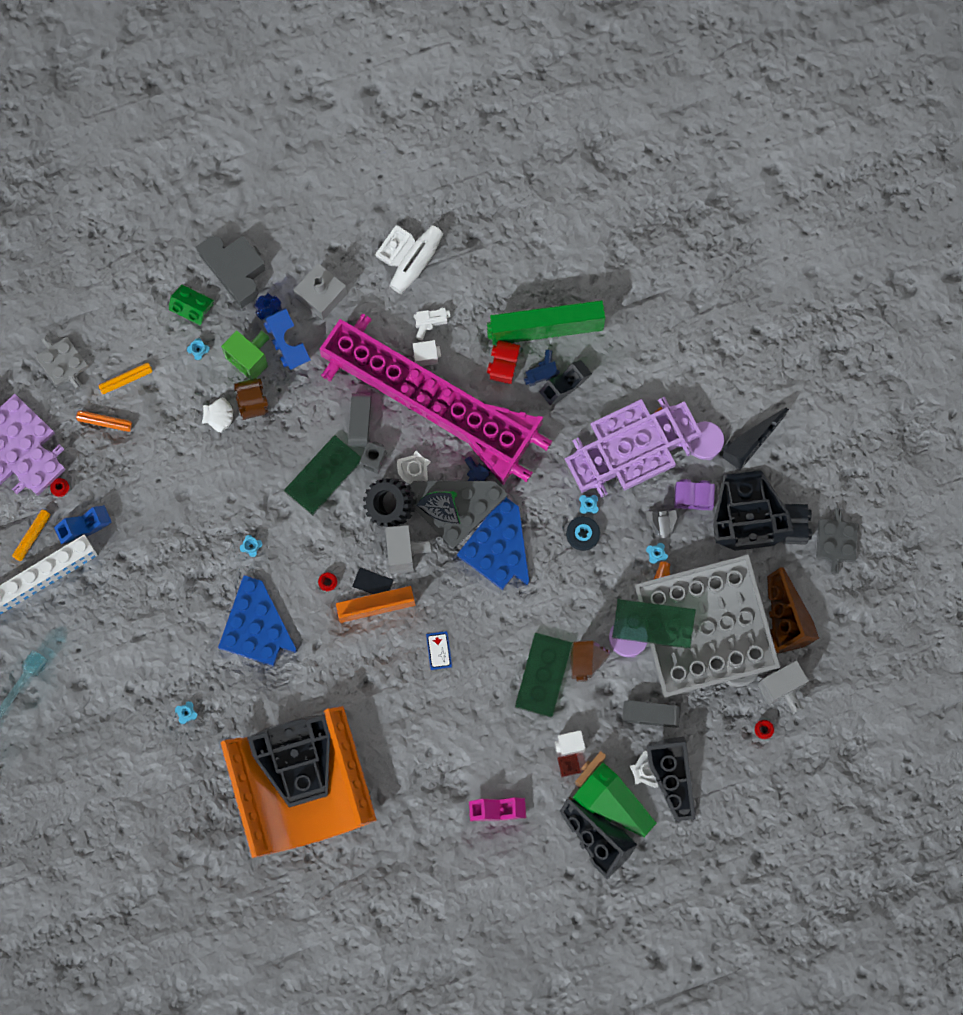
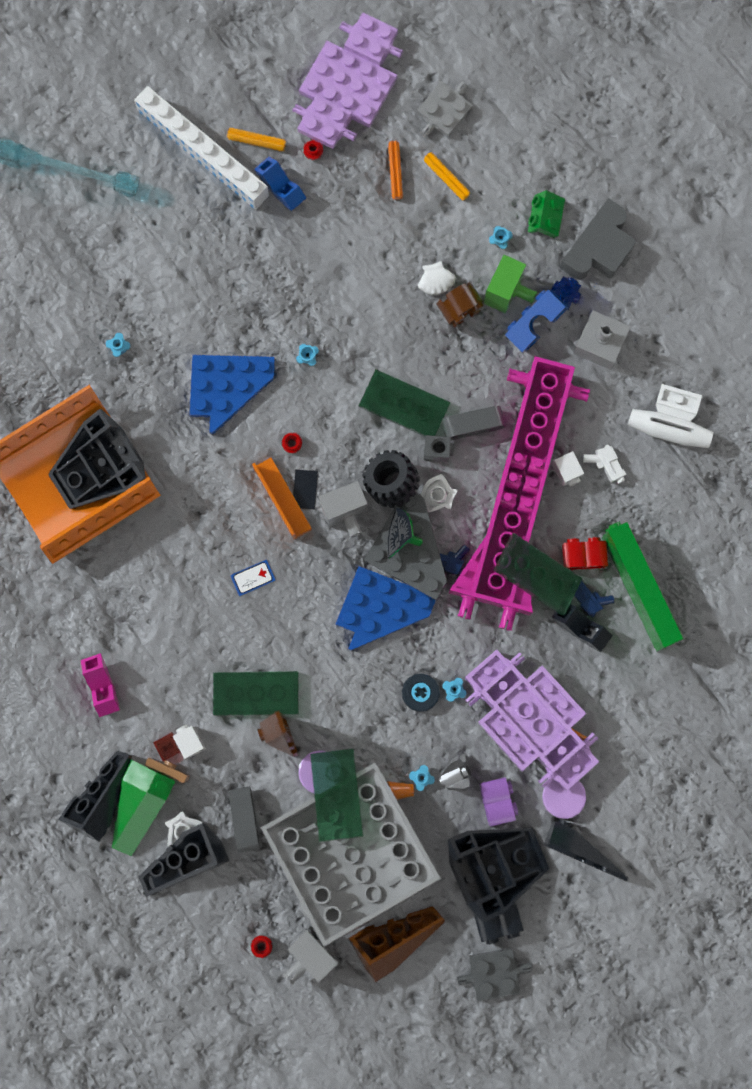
camera: 75 degrees right, 5 degrees up
(511, 402) = (537, 574): none -> clear green tile

